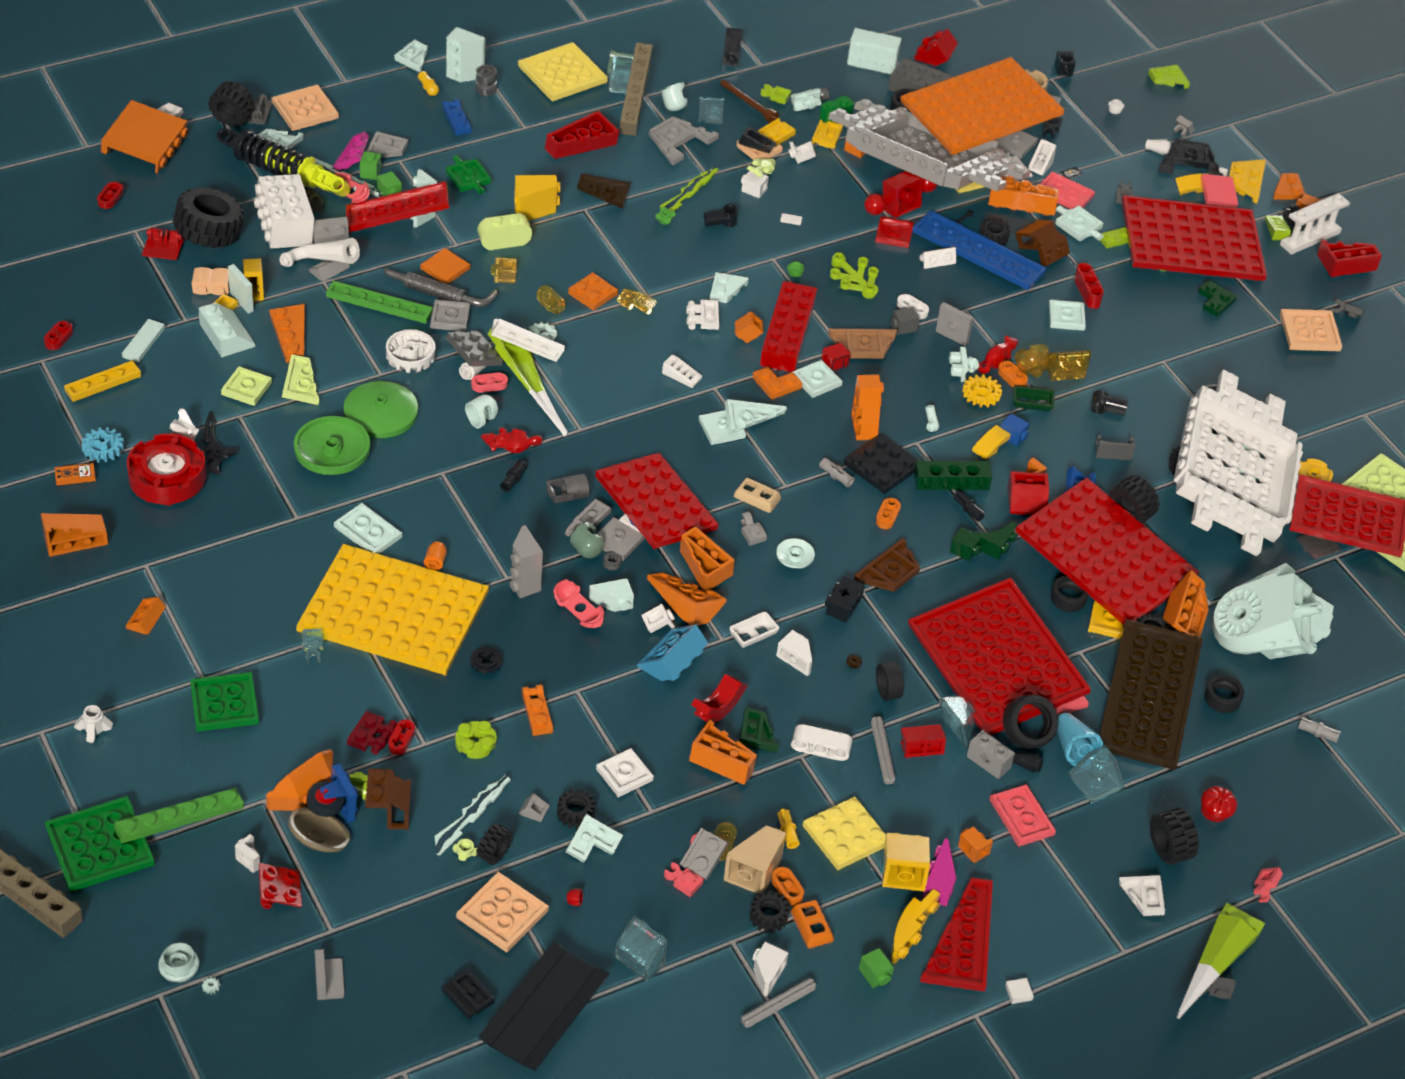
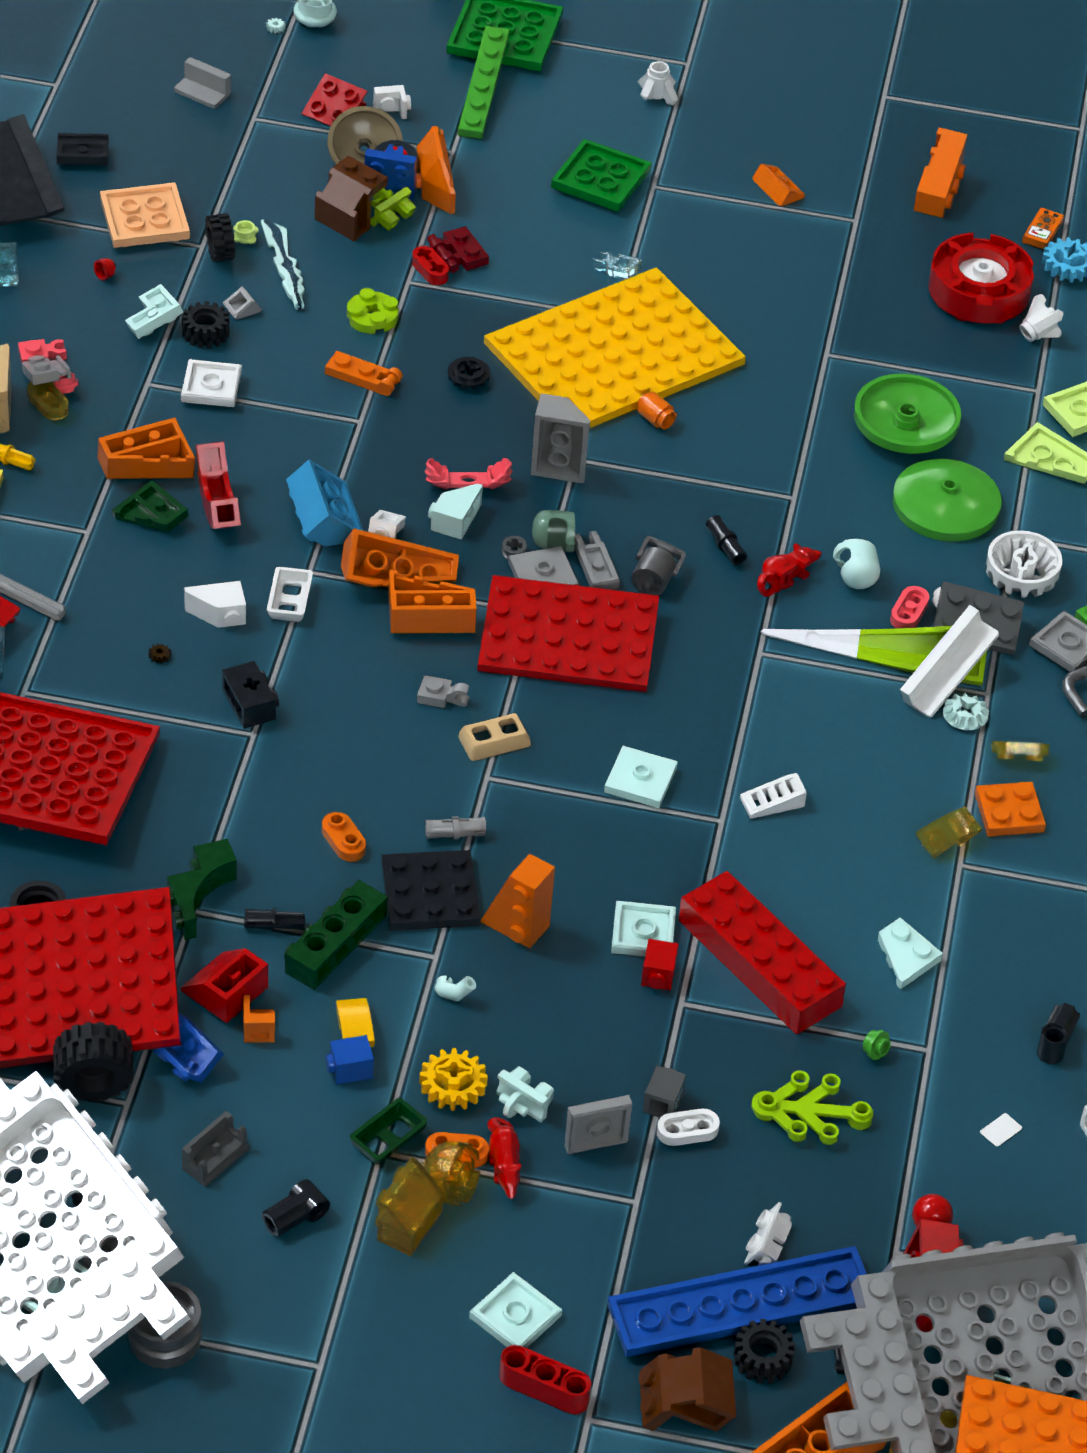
camera: 130 degrees right, 0 degrees up
(217, 452) = (983, 342): black piece -> none
(367, 529) = (753, 391): light aqua tile -> none
(708, 314) = (861, 891): white plate -> none
(746, 414) = (634, 793): light aqua wing -> none
(748, 327) = (791, 902): orange brick -> none
(774, 385) = (670, 875): orange plate -> none
(795, 553) = (362, 697): light aqua dish -> none
(821, 742) = (79, 545): white beam -> none
(865, 342) = (663, 1020): medium nougat wing -> none
(889, 681) = (82, 649): black tyre -> none
(890, 569) = (253, 772): reddish brown wing -> none
(894, 232) = (872, 1229): red tile -> none

